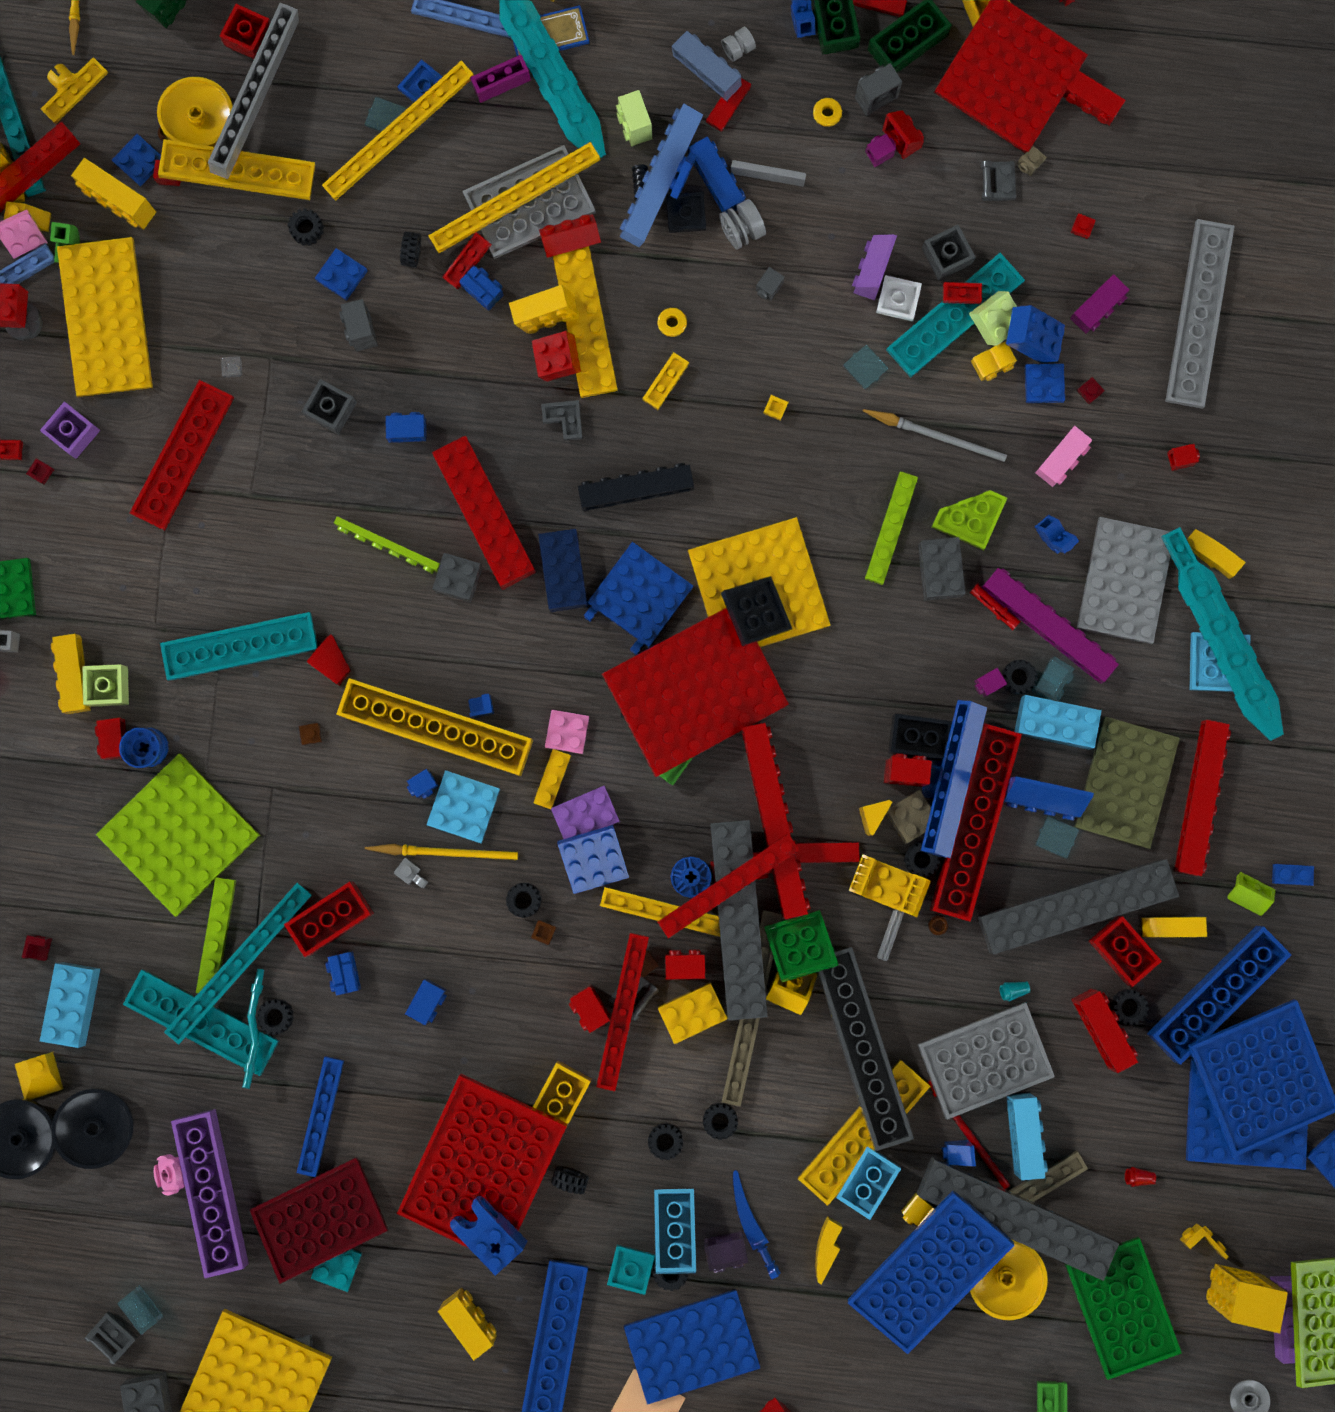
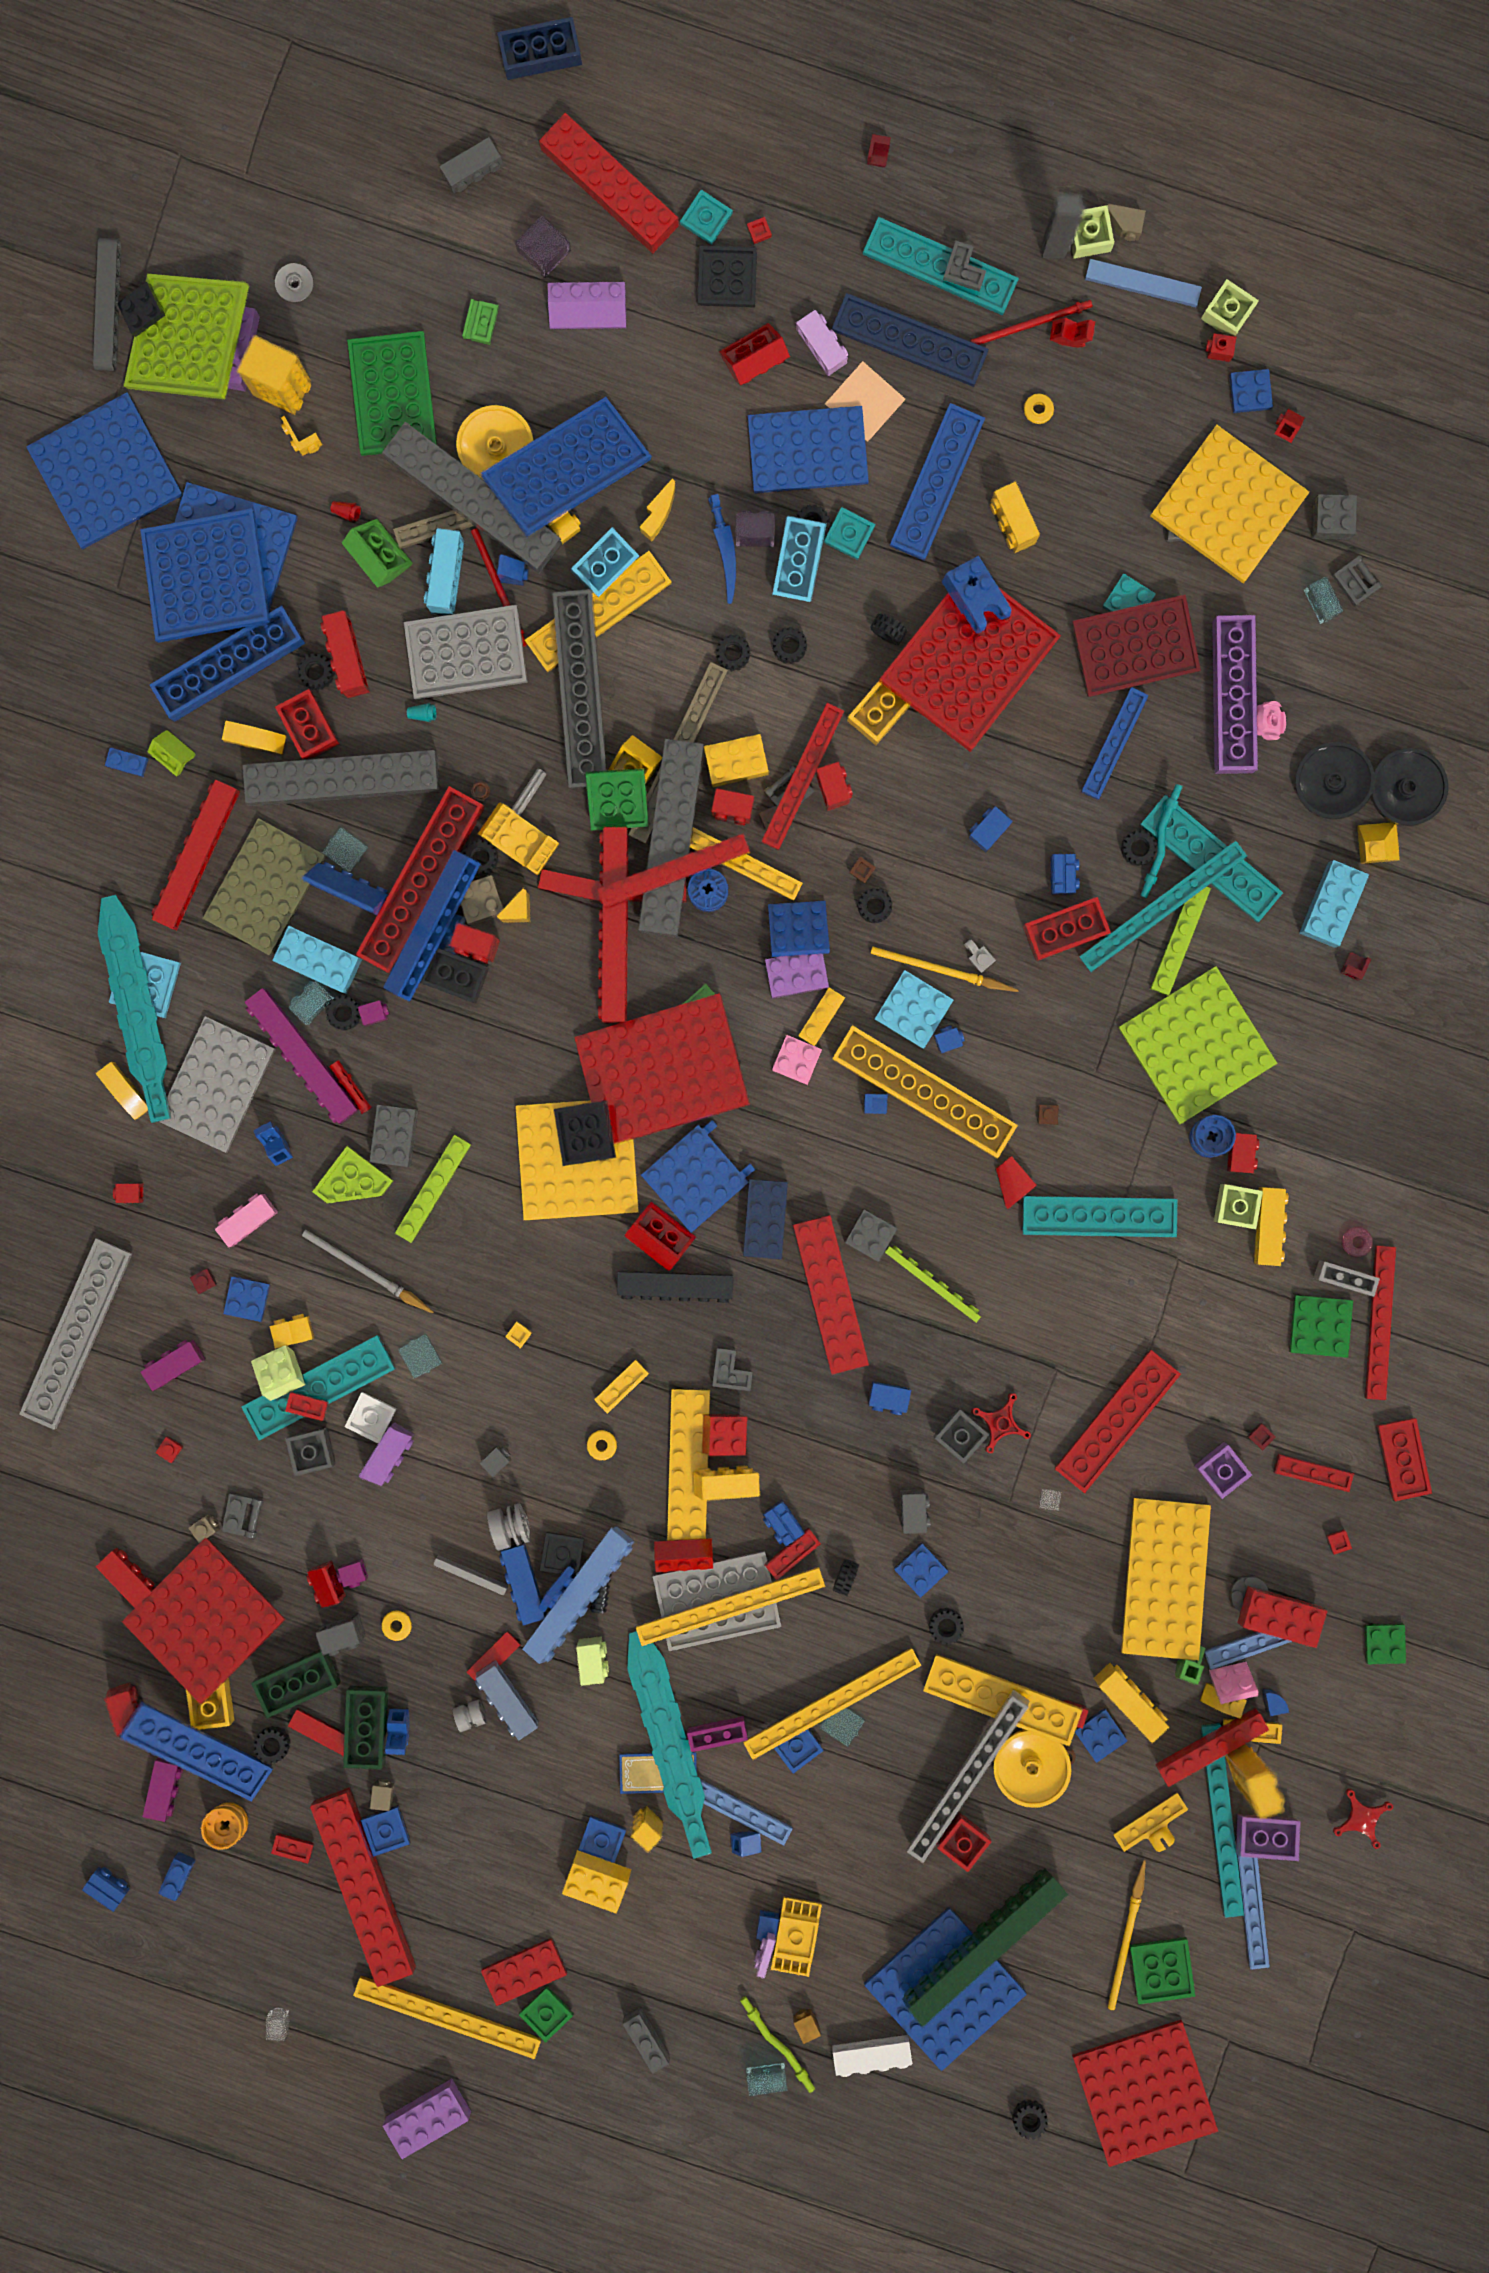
camera: 170 degrees left, 5 degrees up
(293, 428) = (1000, 1423): none -> red piece
(661, 531) = (660, 1236): none -> red slope
(1035, 334) = (245, 1346): blue brick -> none
(1099, 1141) = (376, 552): none -> bright green slope

